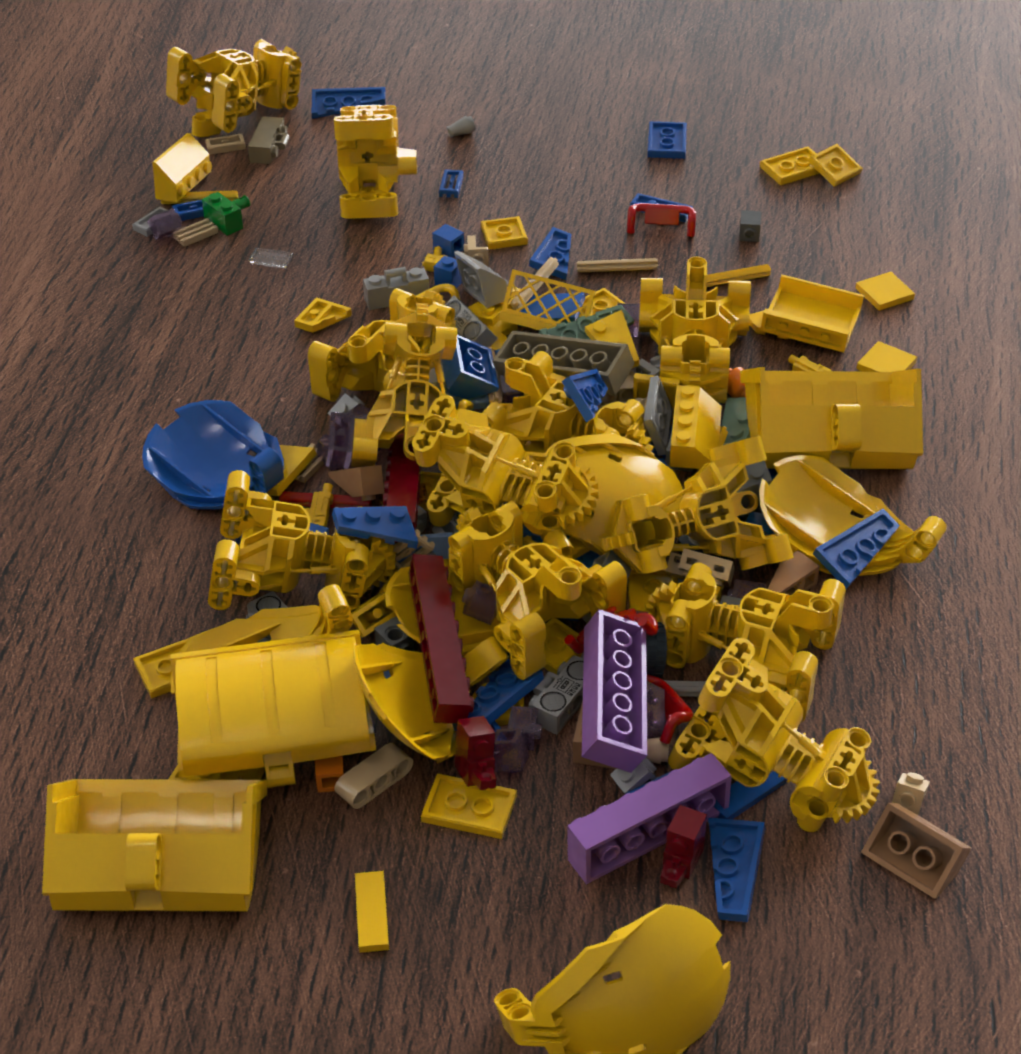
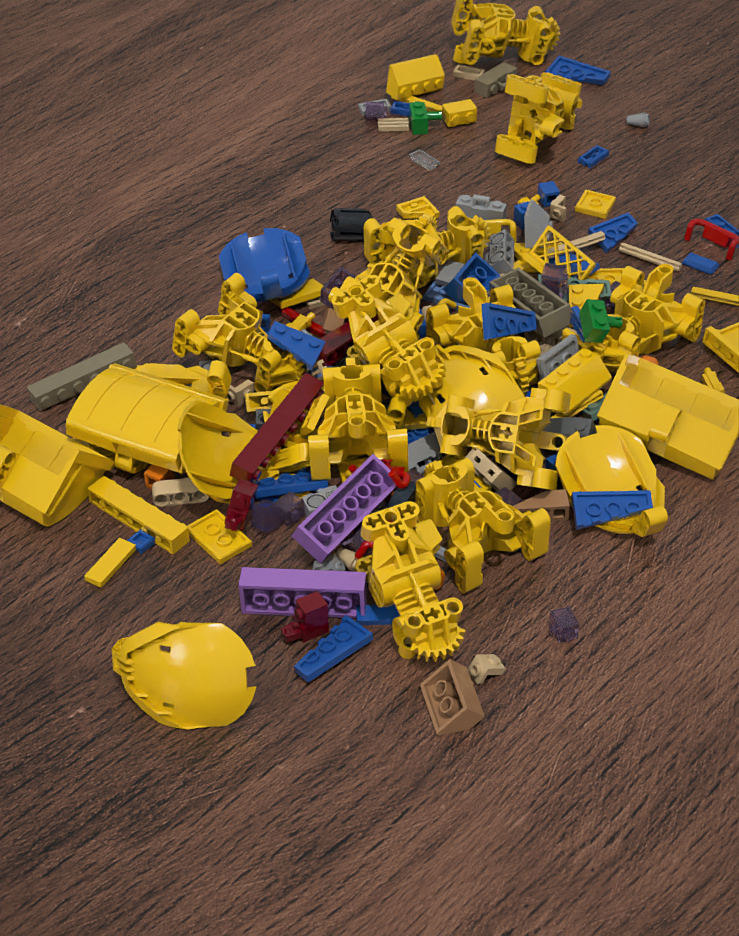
camera: 35 degrees right, 0 degrees up
(110, 696) = (76, 378): none -> dark tan brick
(265, 189) = (459, 113): none -> yellow brick
(266, 363) = (348, 224): none -> black cylinder
(351, 831) = (138, 514): none -> yellow brick
(383, 860) = (142, 540): none -> blue tile
(473, 598) = (314, 414): none -> yellow tile
(573, 322) = (555, 279): none -> brick
(652, 363) = (576, 322): none -> blue tile
(670, 251) = (700, 263): none -> blue tile
(680, 348) = (596, 322): none -> green brick
(938, 699) = (563, 624): none -> clear purple brick

